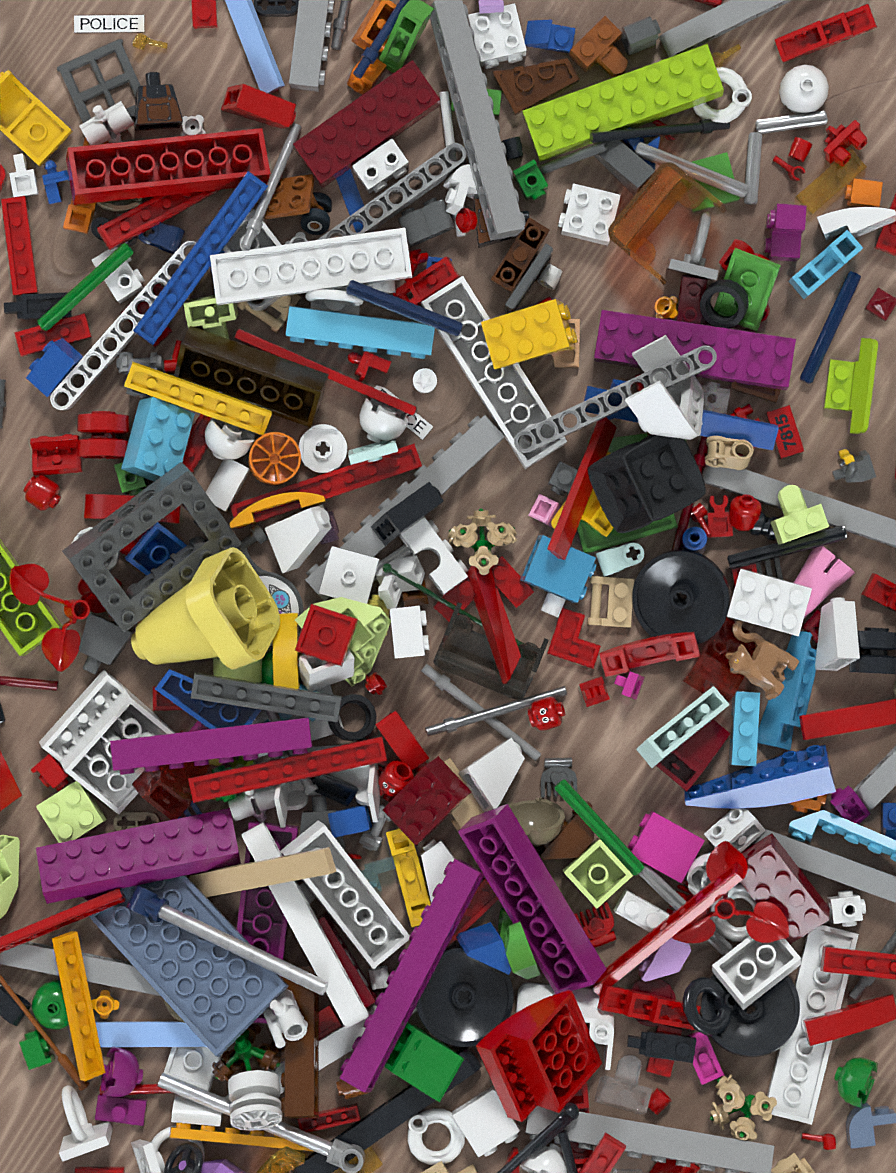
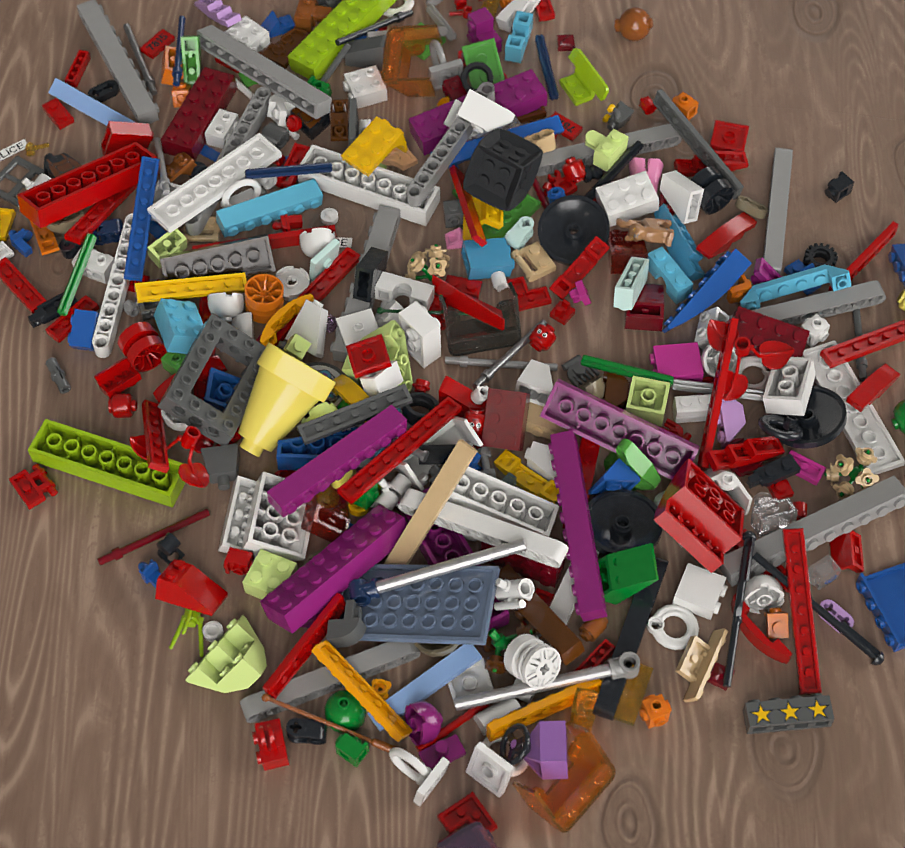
camera: 30 degrees left, 30 degrees down
(44, 574) = (155, 437): none -> red tile
(107, 934) = (348, 630): none -> dark grey brick
(262, 559) = (297, 346): none -> yellowish green brick
(419, 748) = (480, 394): none -> white hose

